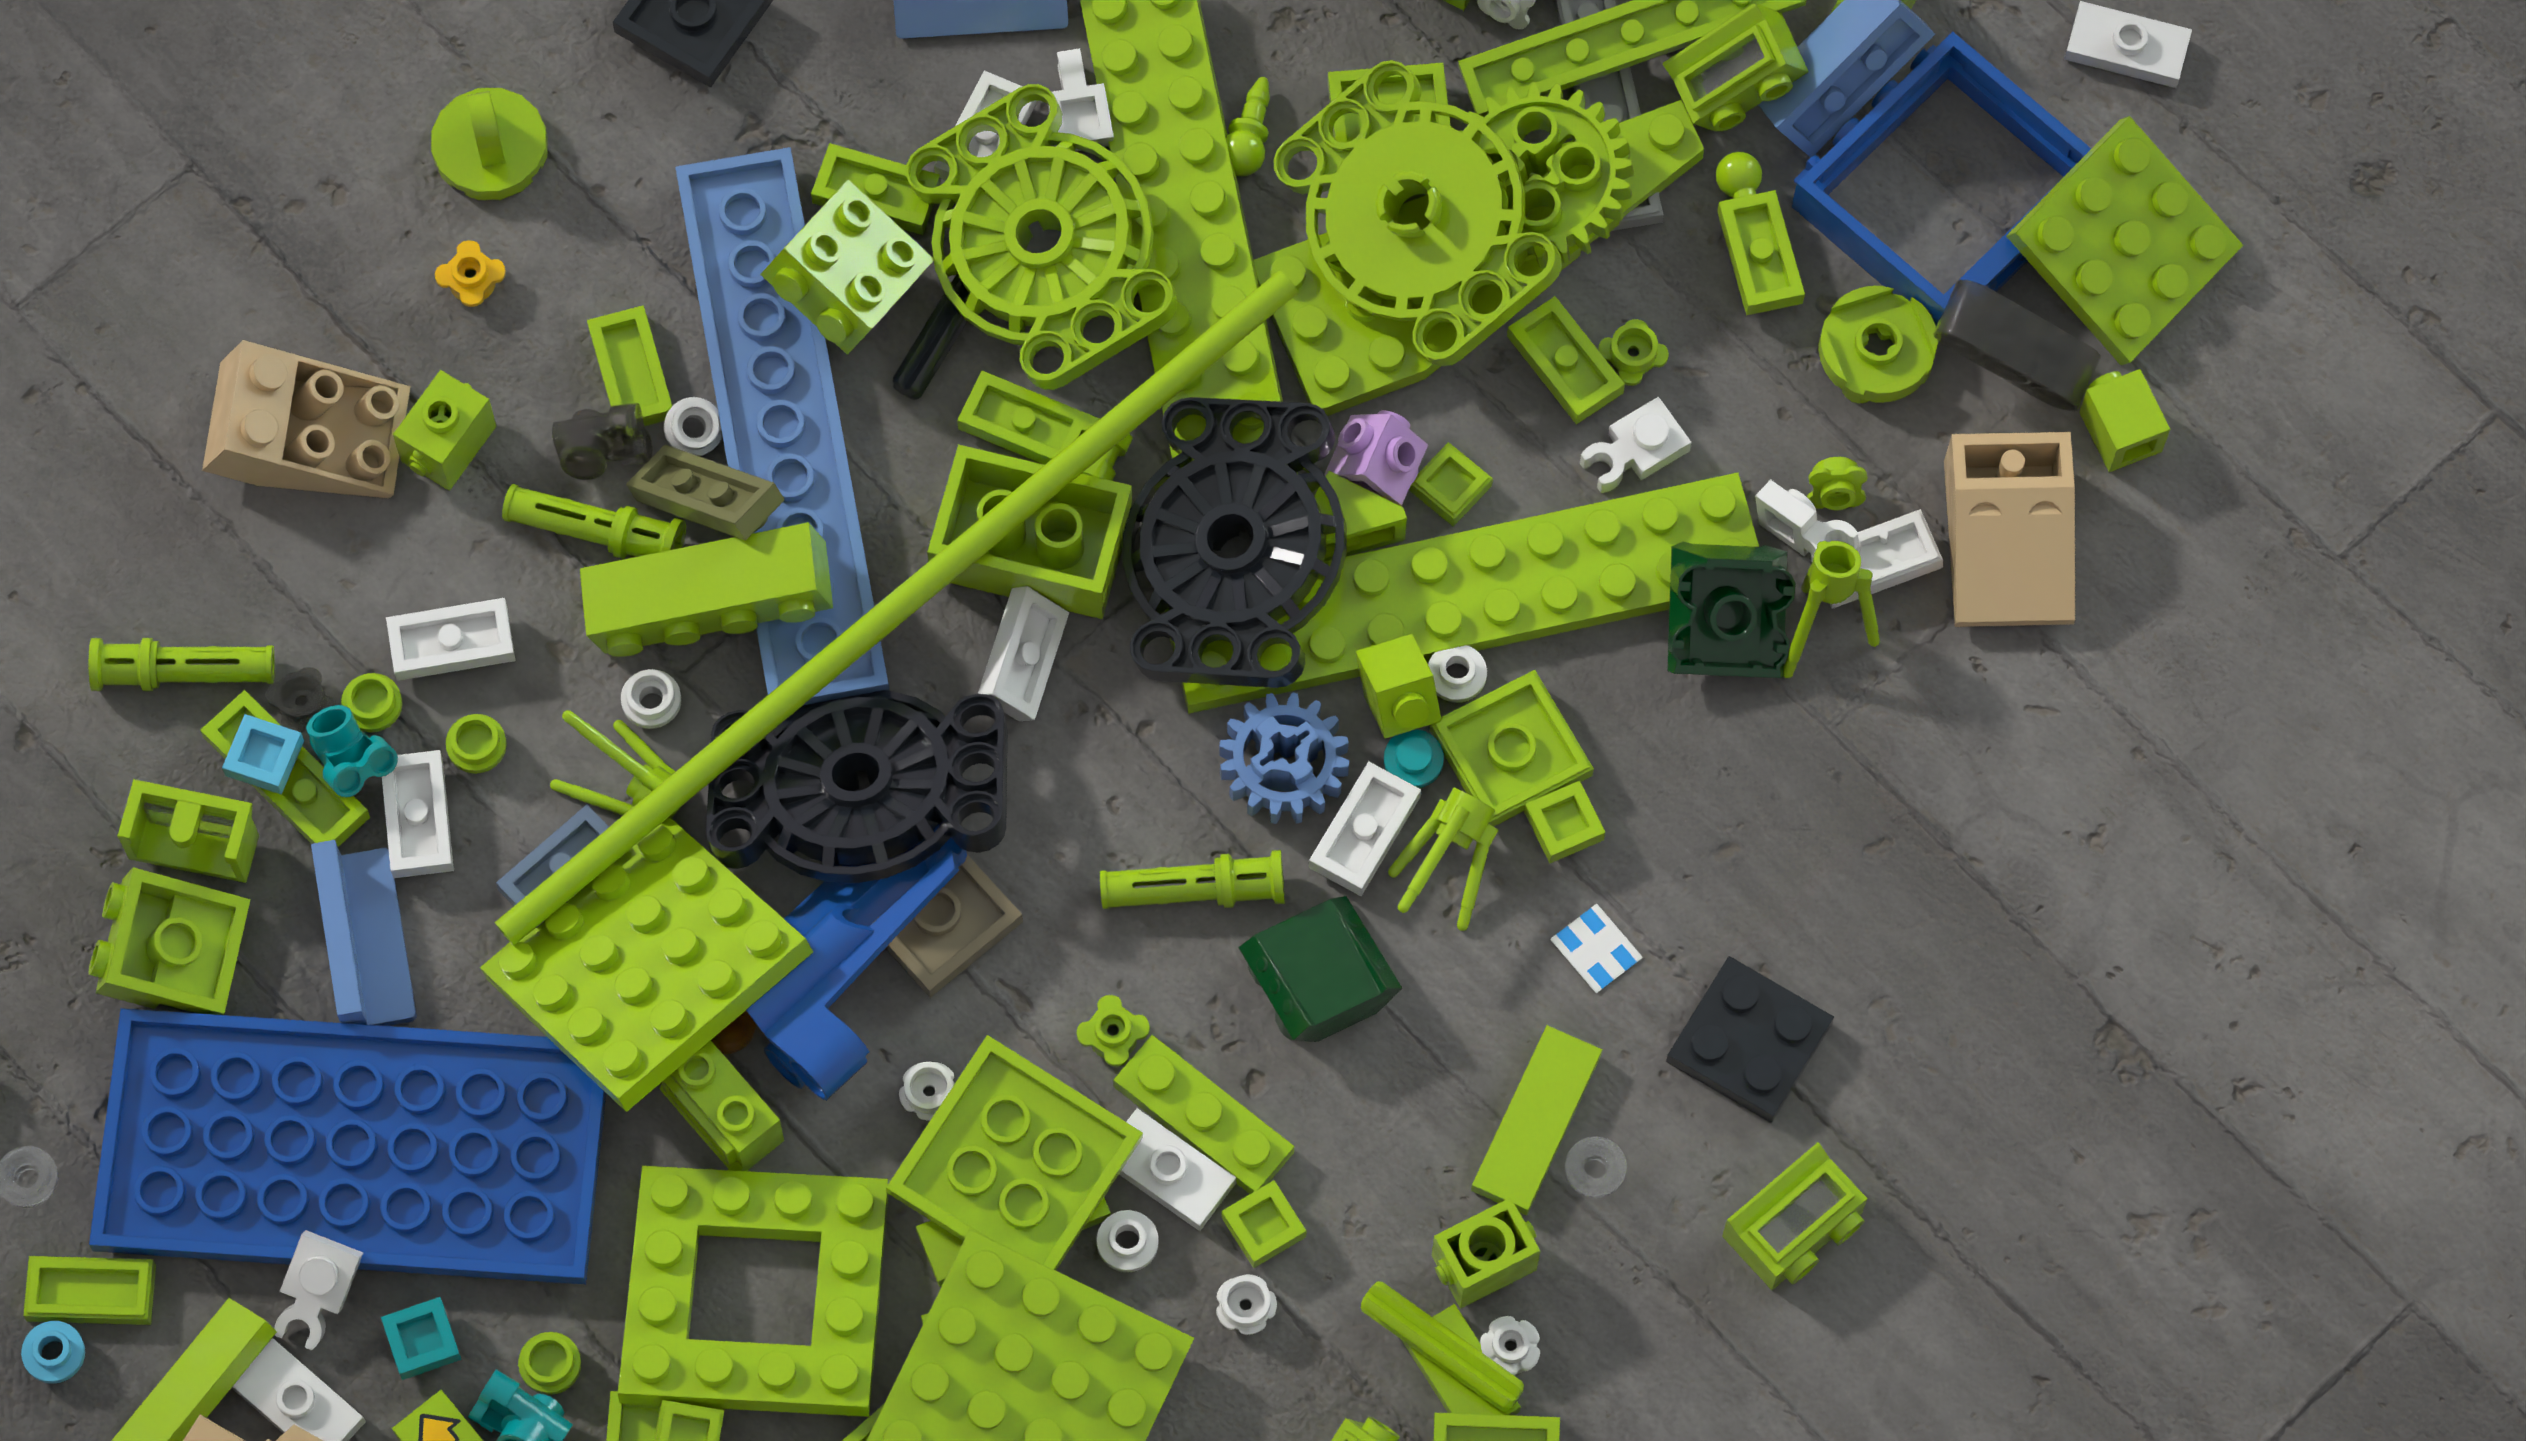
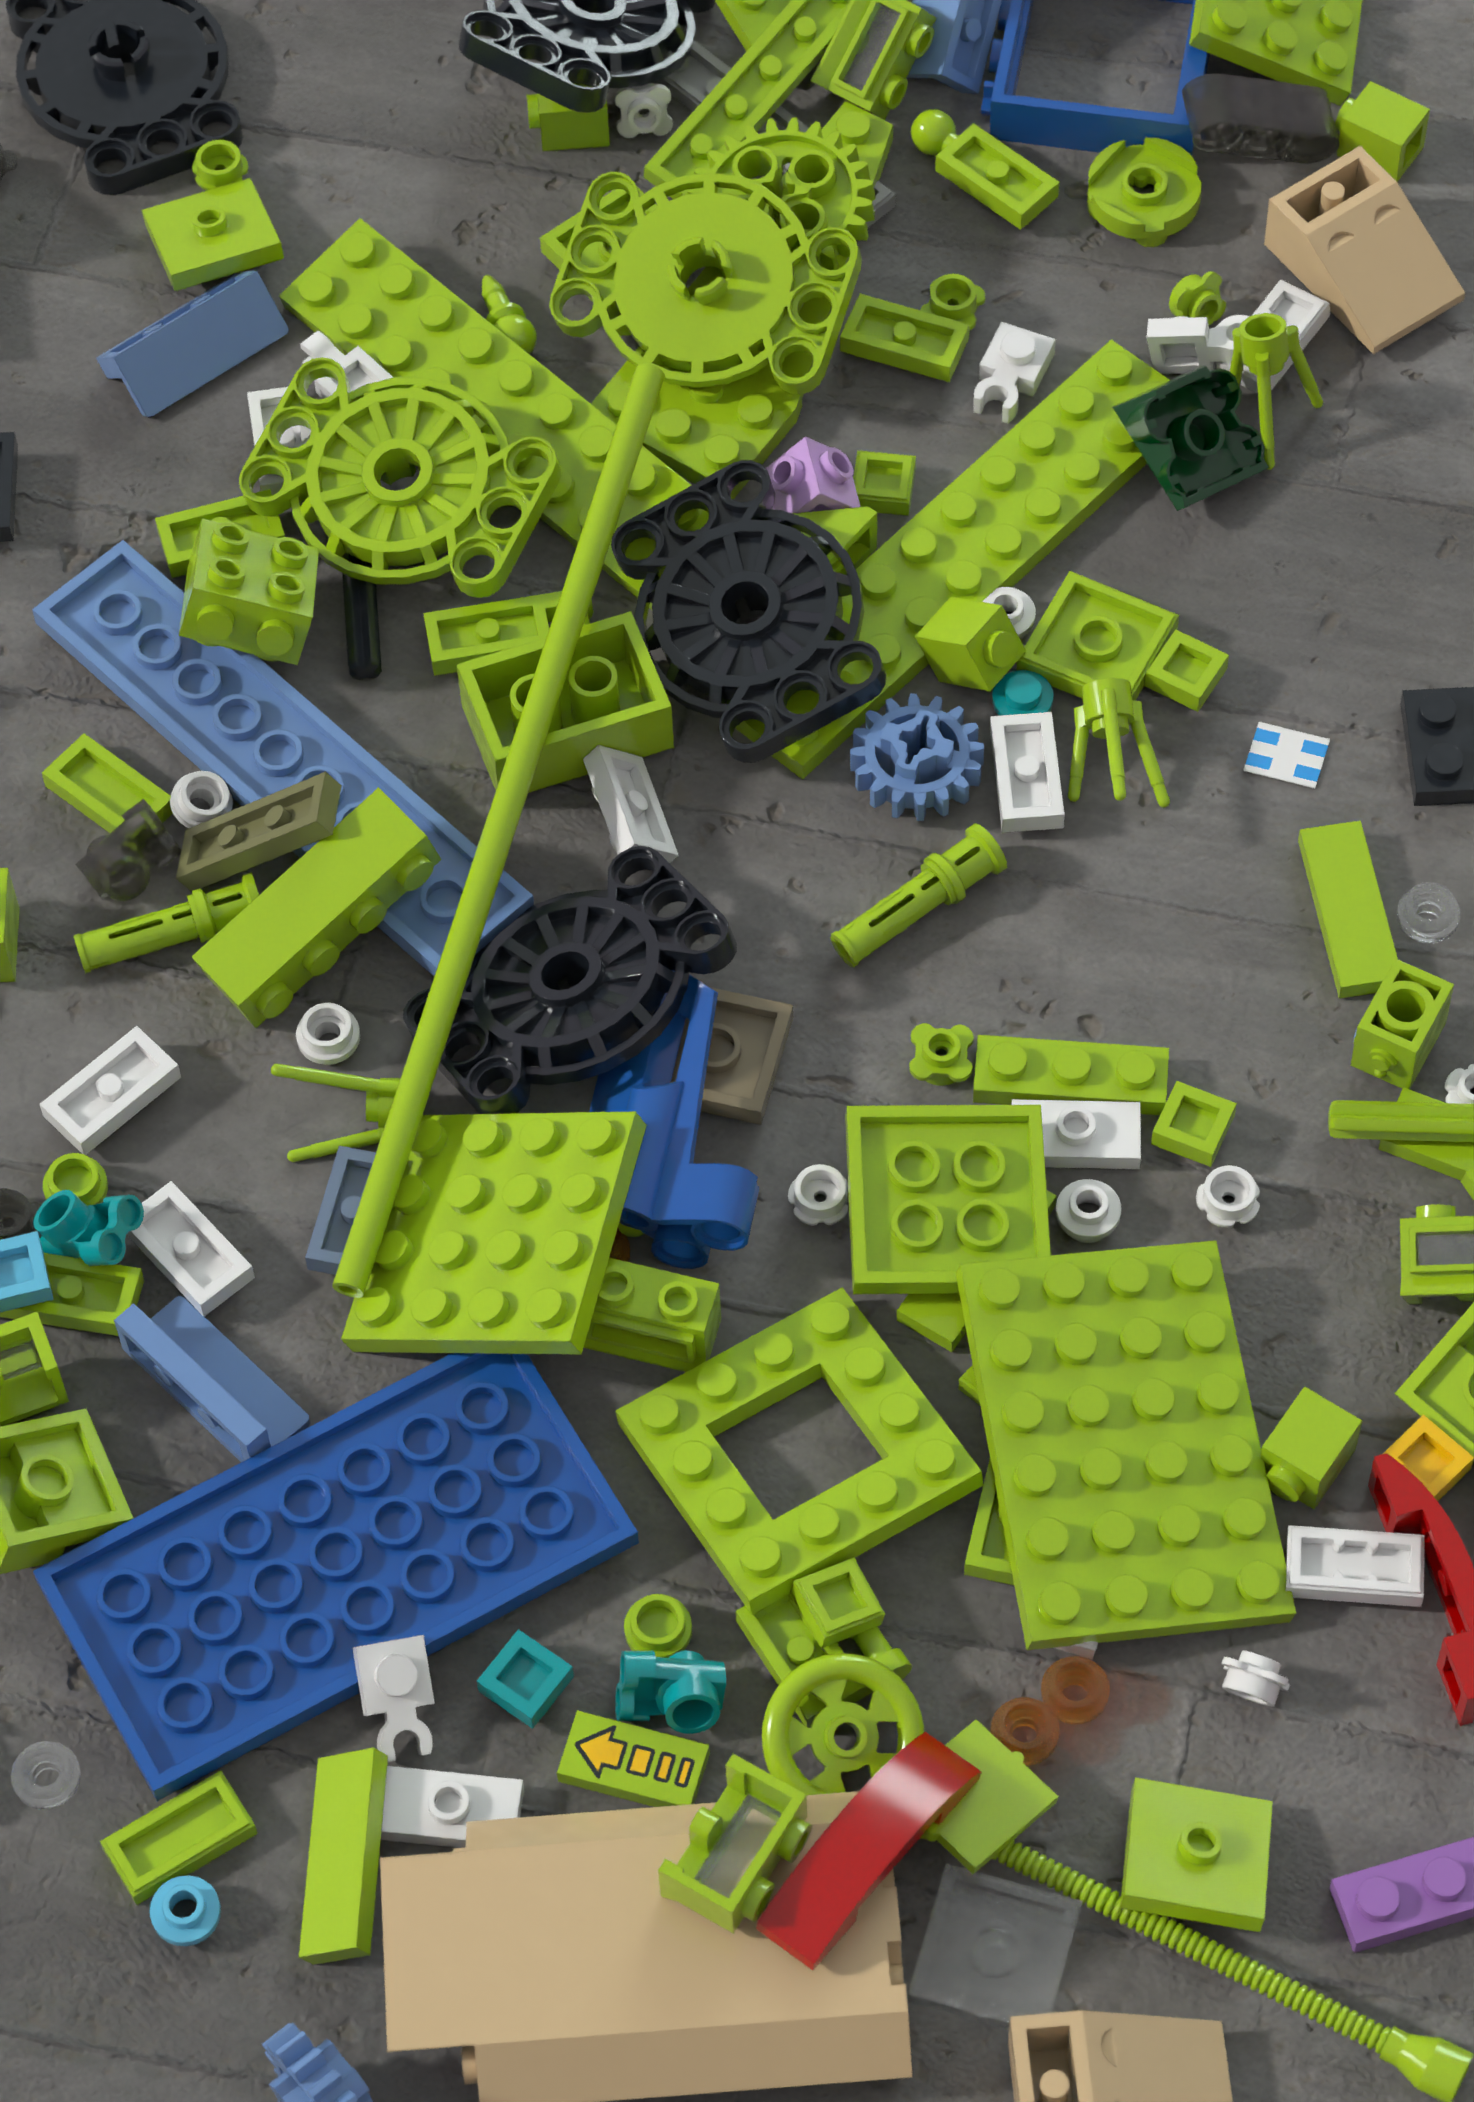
camera: 30 degrees left, 10 degrees down
(476, 743) = (196, 1161): lime plate -> none
(1320, 971) = (1078, 903): dark green slope -> none

